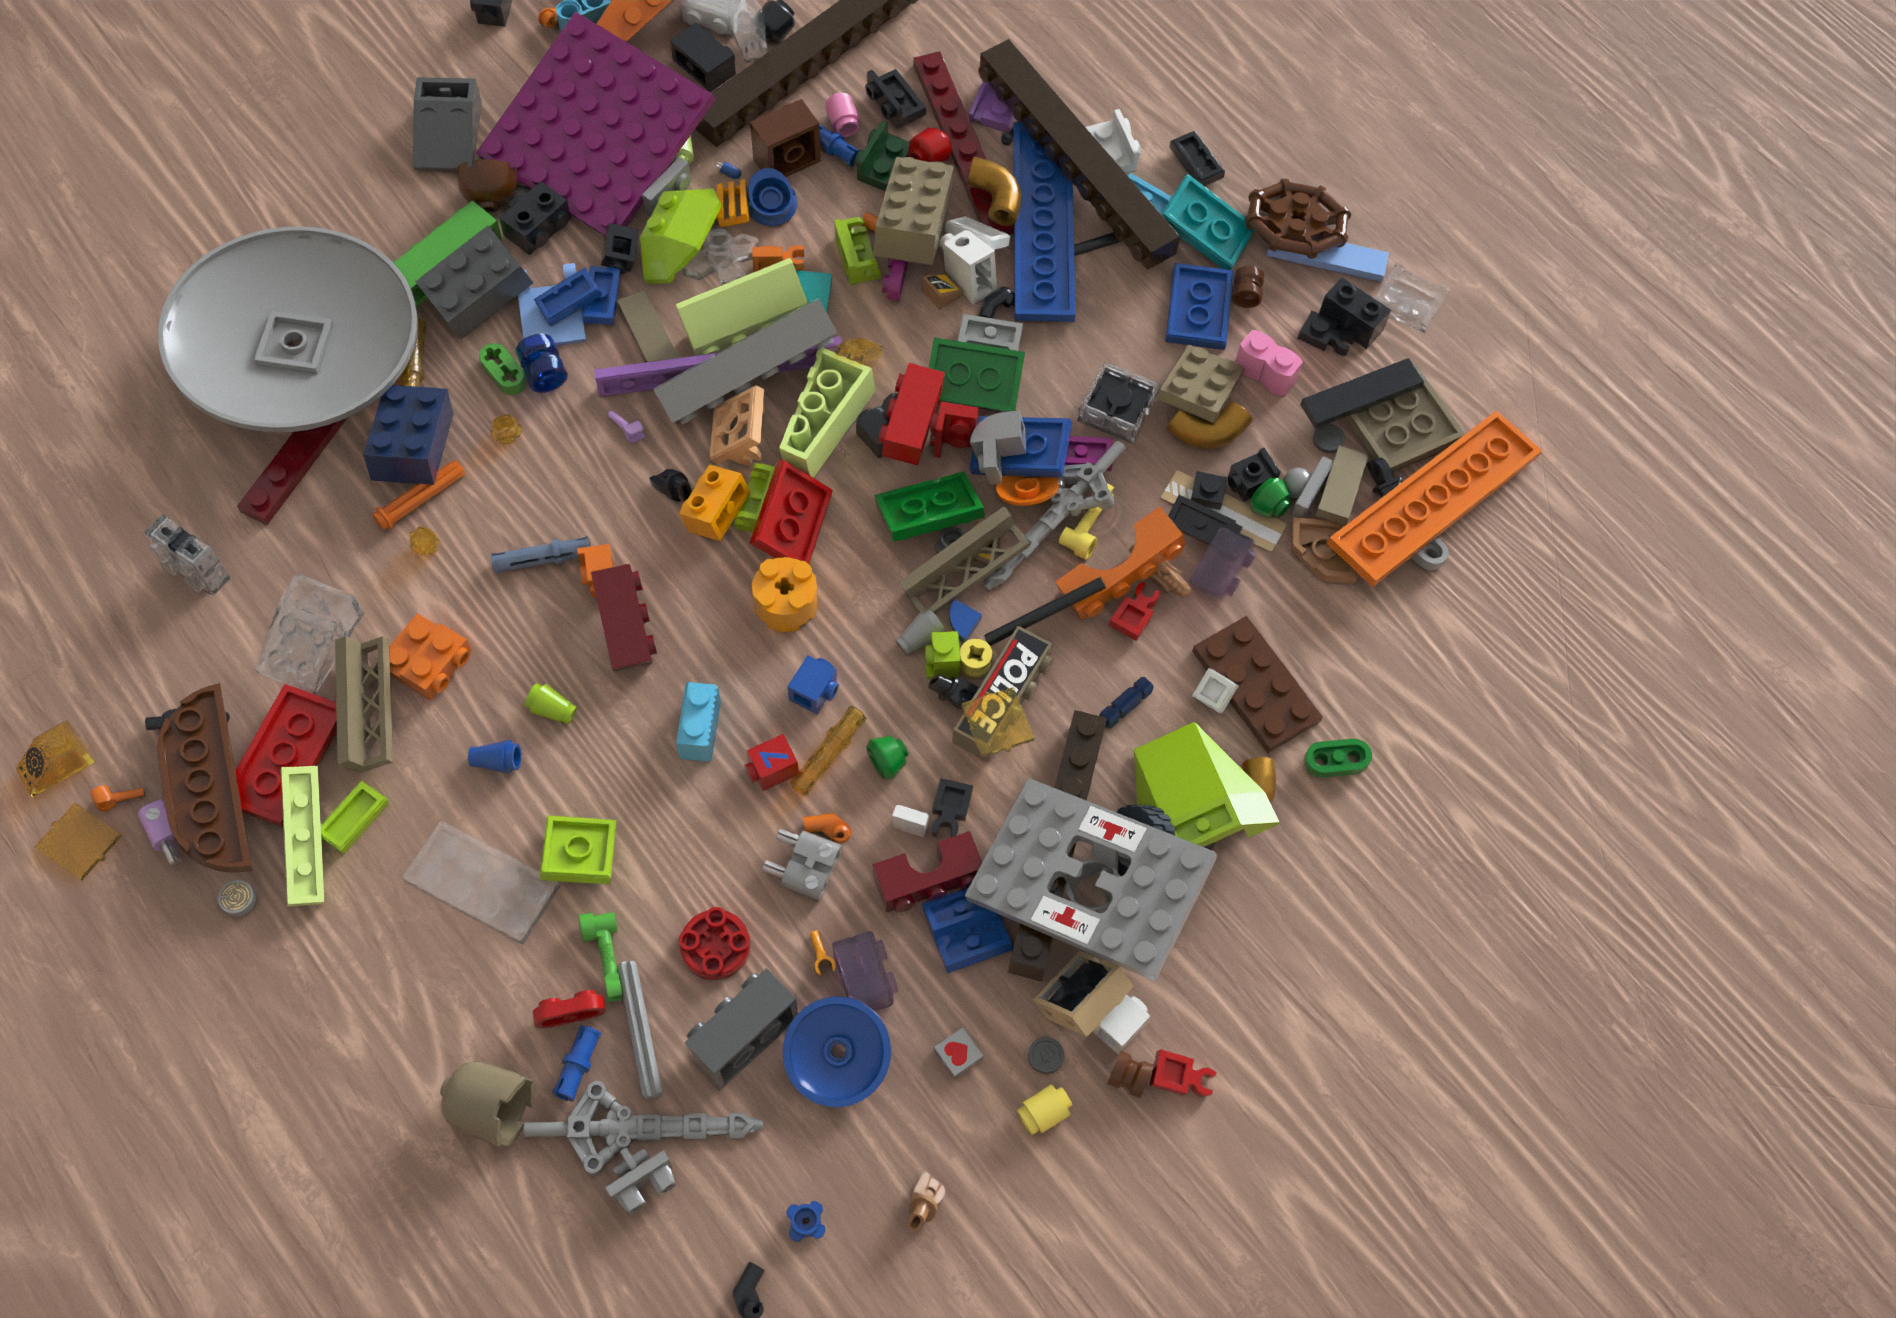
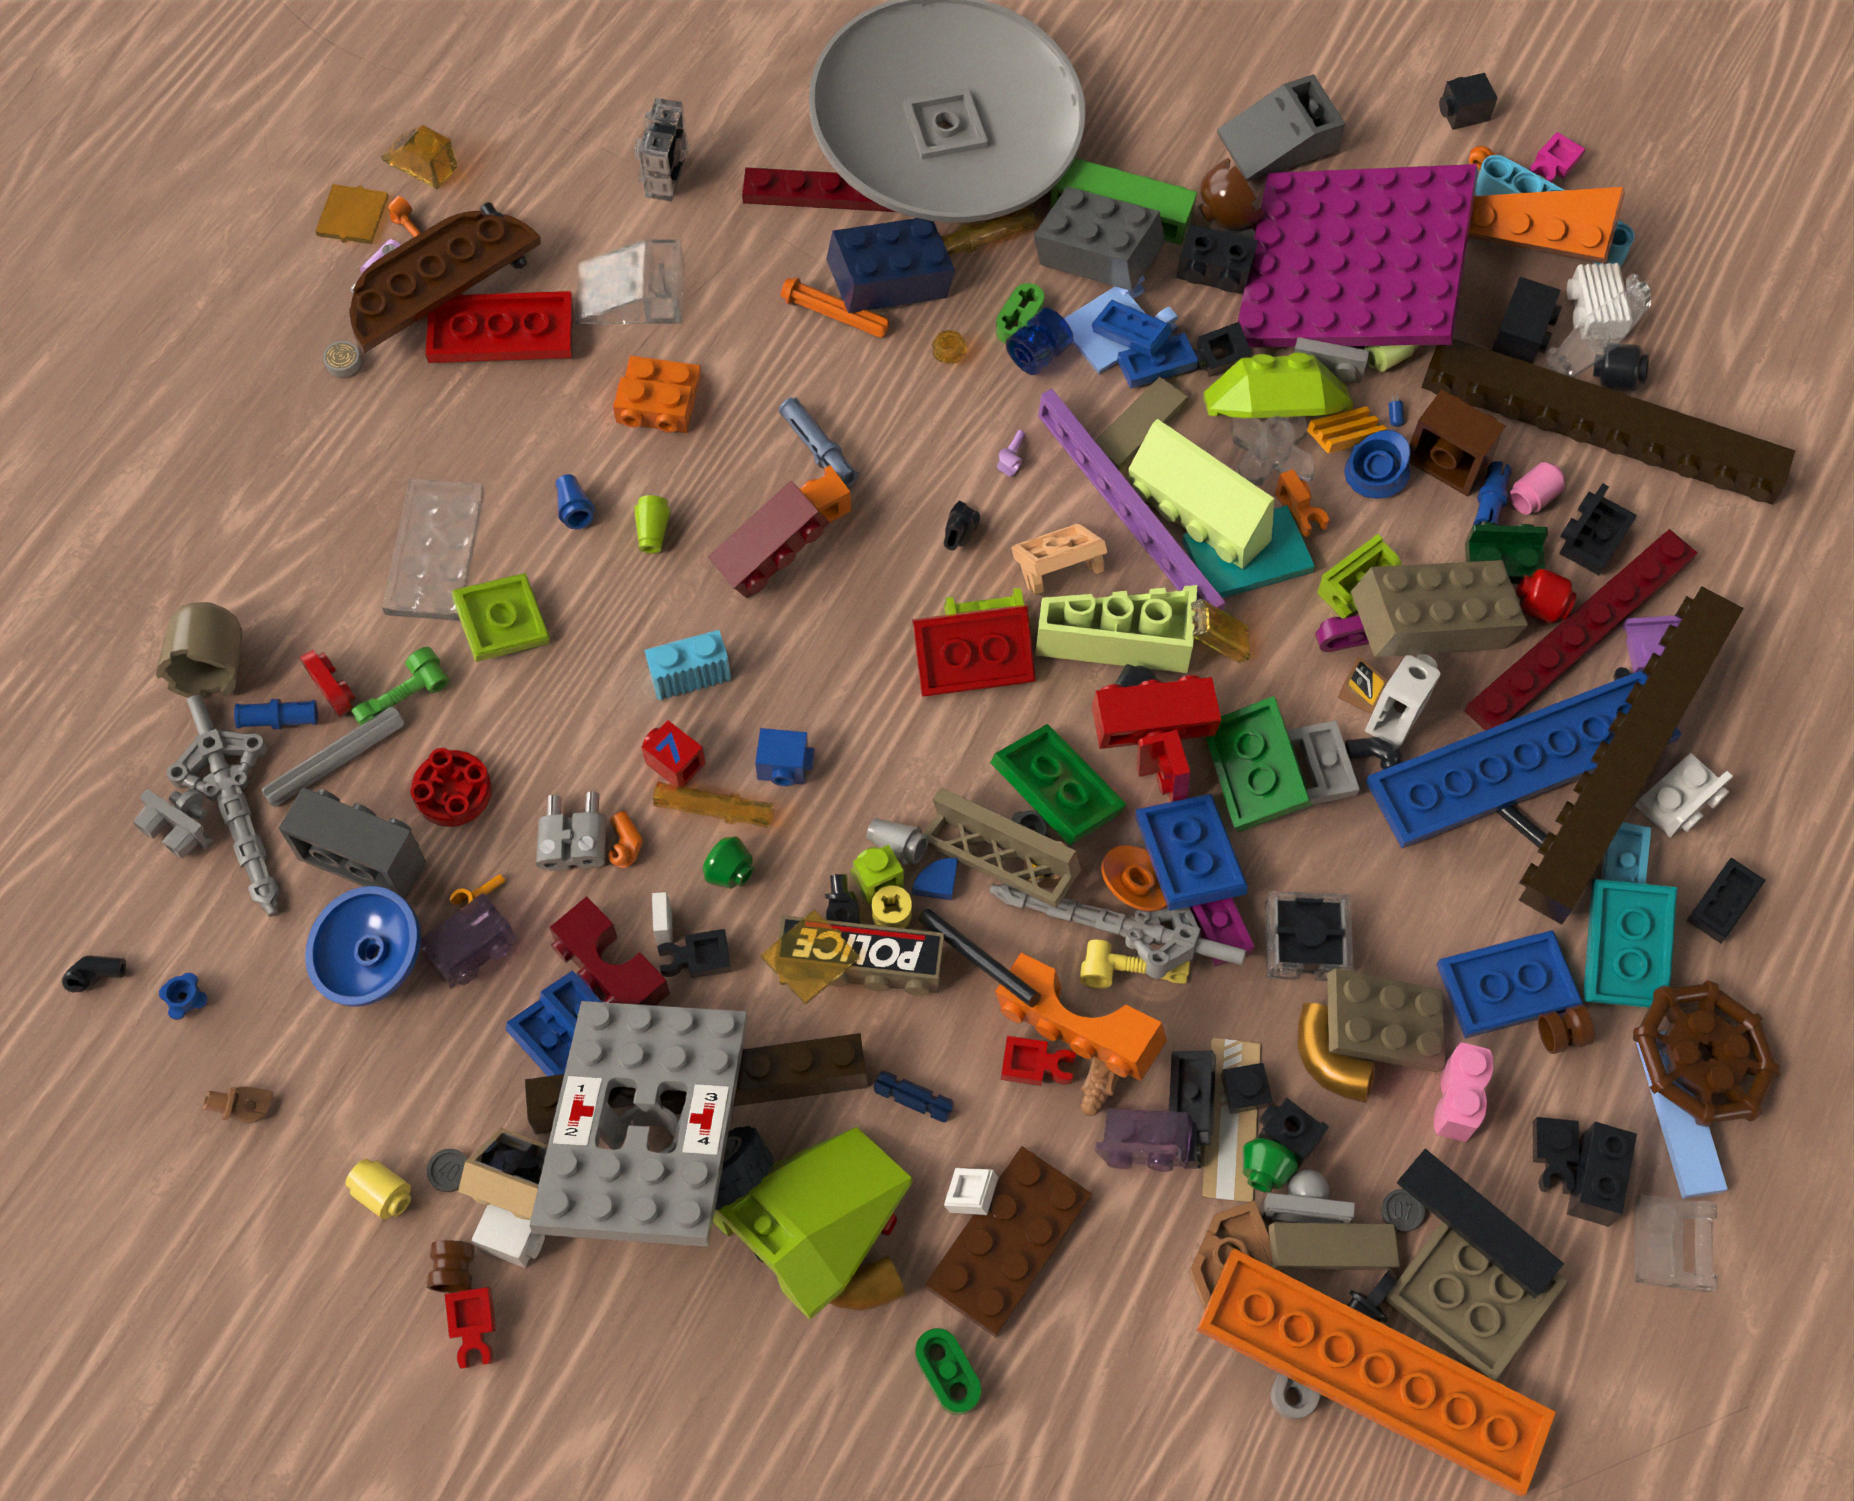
camera: 70 degrees right, 0 degrees up
(302, 836) = (417, 377): yellowish green plate -> none
(352, 817) = (461, 413): lime tile -> none
(356, 706) = (577, 360): dark tan fence -> none
(423, 541) = (782, 334): clear yellow plate -> none
(714, 502) = (954, 570): light orange brick -> none
(746, 360) = (1136, 521): light grey brick -> none
(785, 593) = (876, 683): light orange brick -> none
(958, 1053) = (416, 1075): light grey tile -> none
(992, 237) = (1455, 691): white tile -> none
(998, 437) = (1172, 813): light grey brick -> none
(1001, 185) = (1529, 690): pearl gold cylinder -> none

